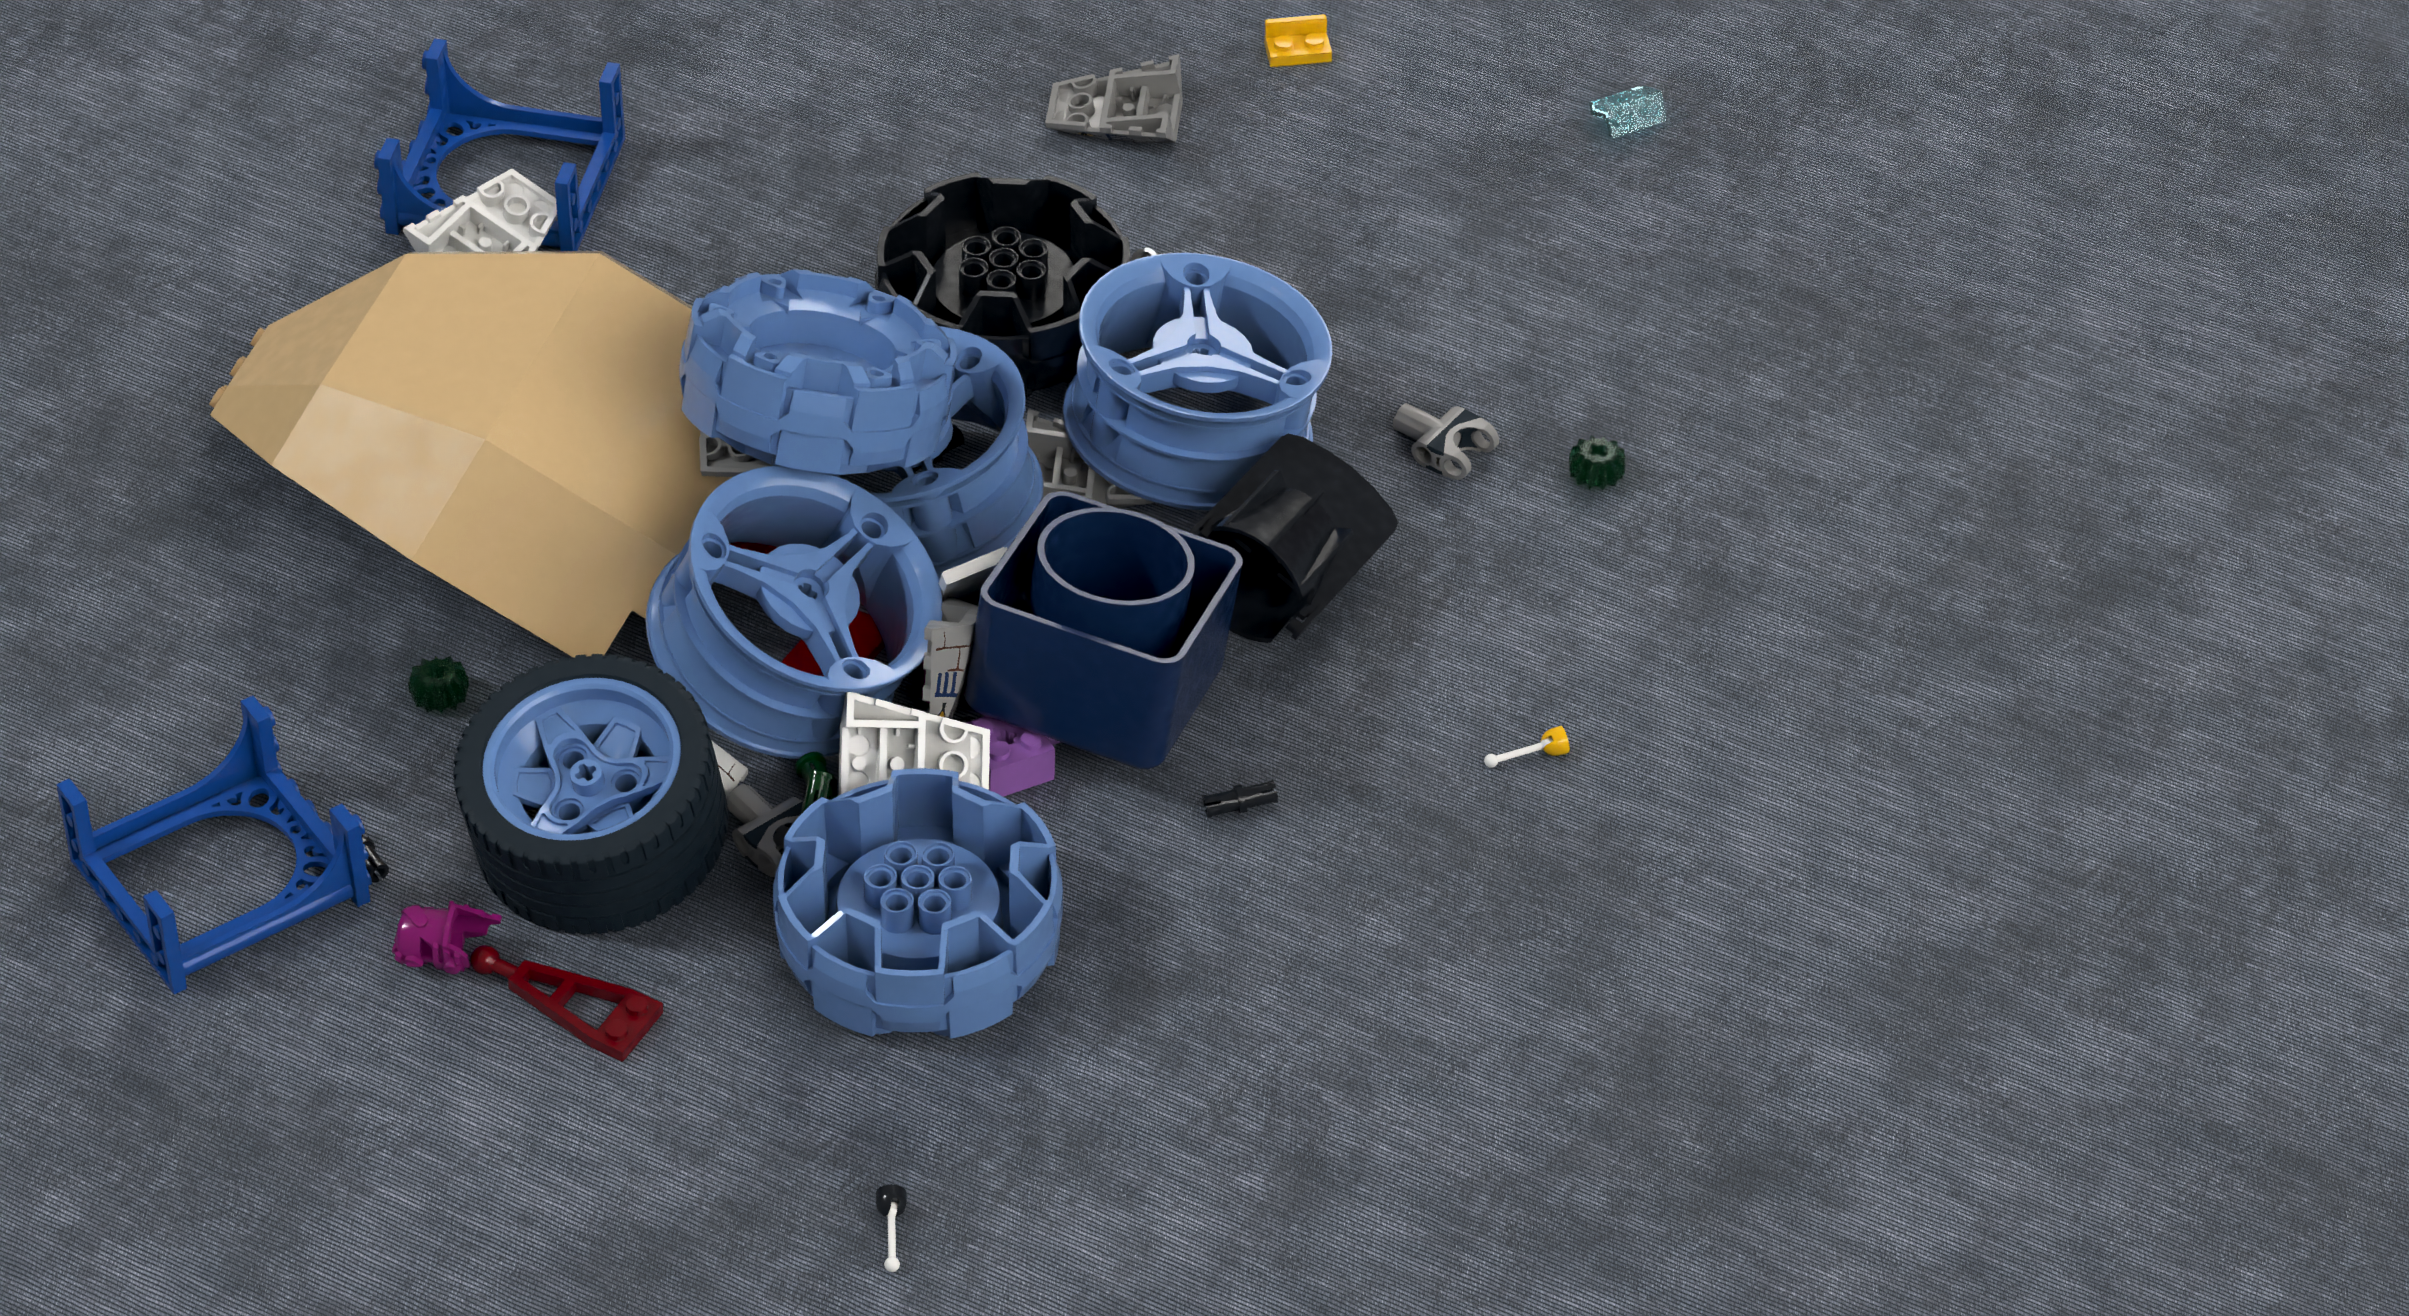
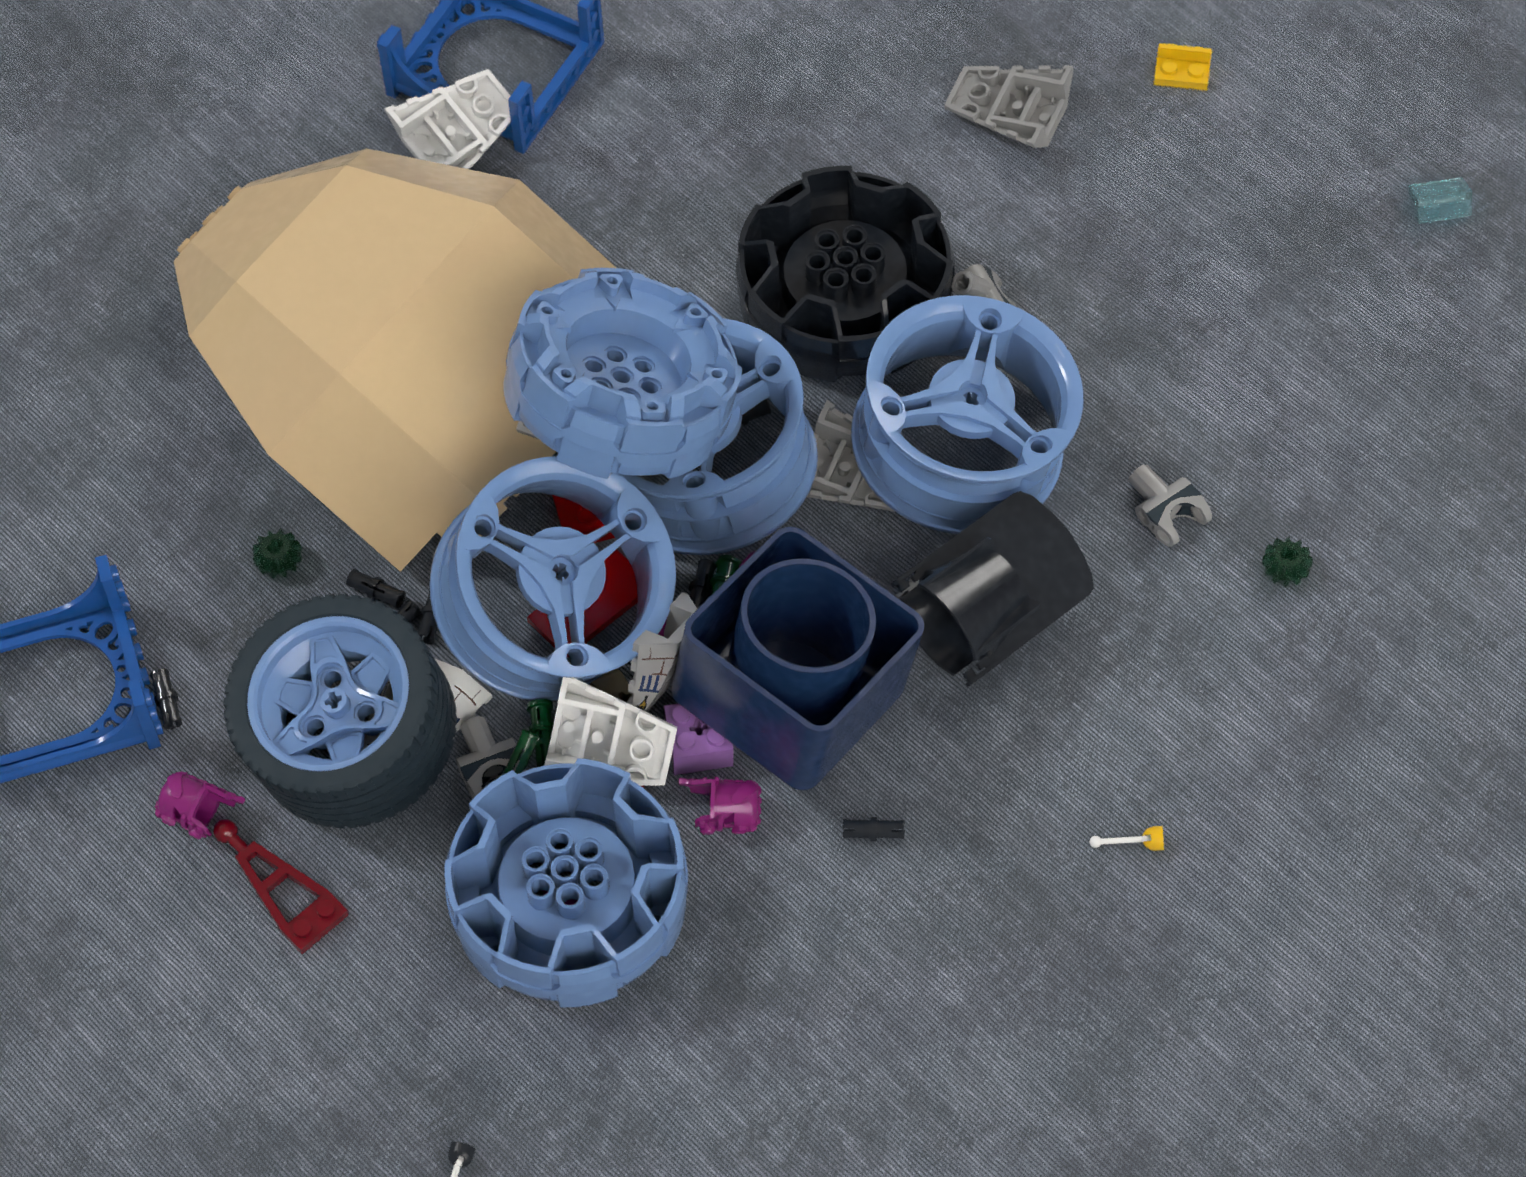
camera: 20 degrees right, 15 degrees up
(967, 579) = (702, 581): white tile -> none
(1065, 803) = (729, 803): none -> magenta helmet

